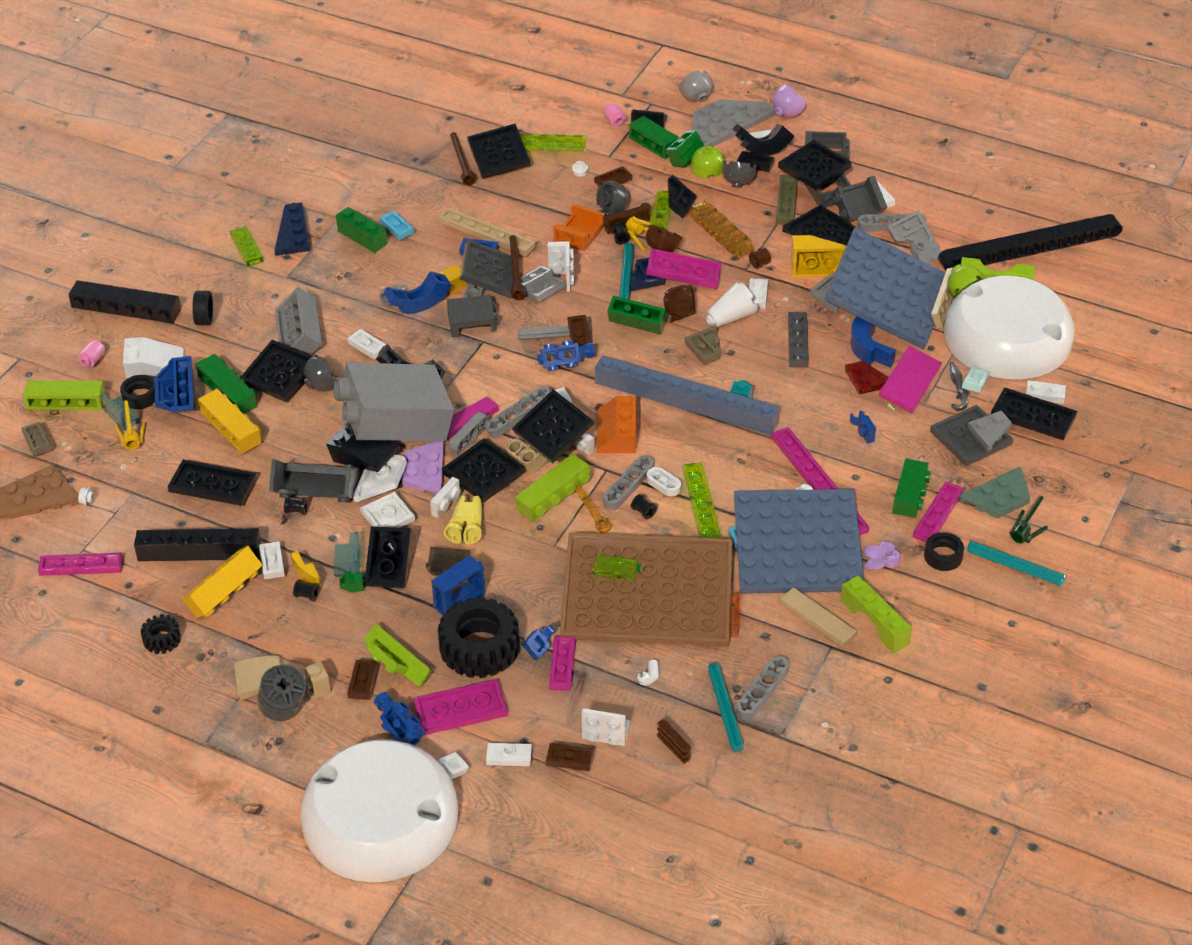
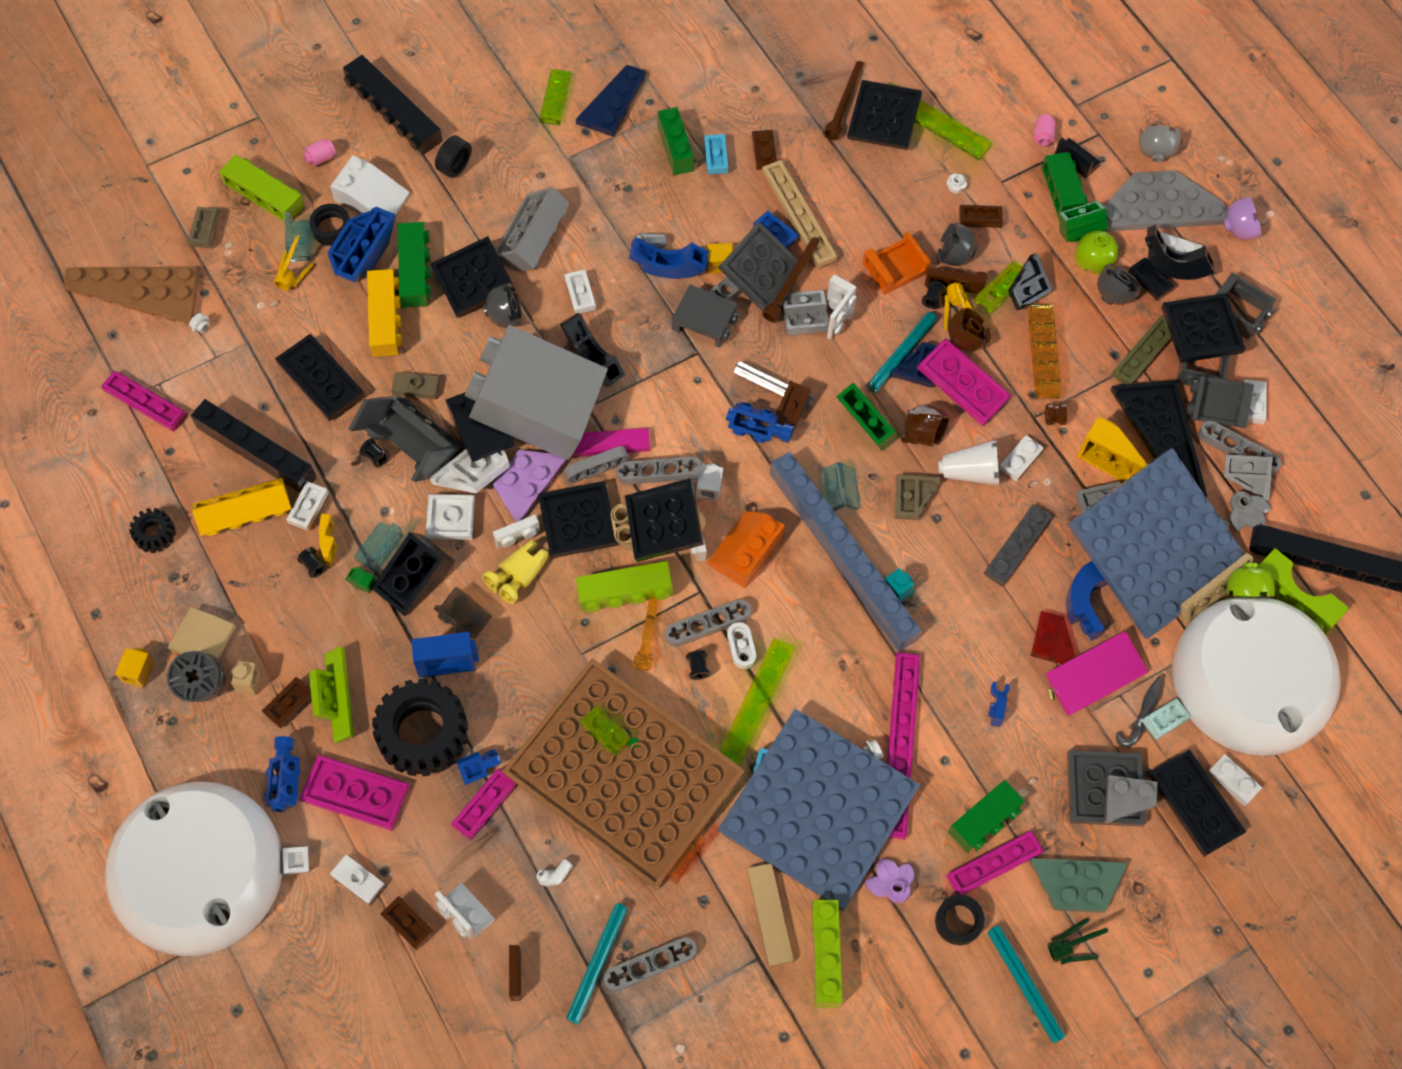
camera: 30 degrees right, 20 degrees up
(222, 719) = (134, 667): none -> yellow brick
(292, 453) = (415, 385): none -> dark tan plate
(427, 208) = (763, 148): none -> reddish brown plate
(651, 361) = (840, 486): none -> clear light blue panel

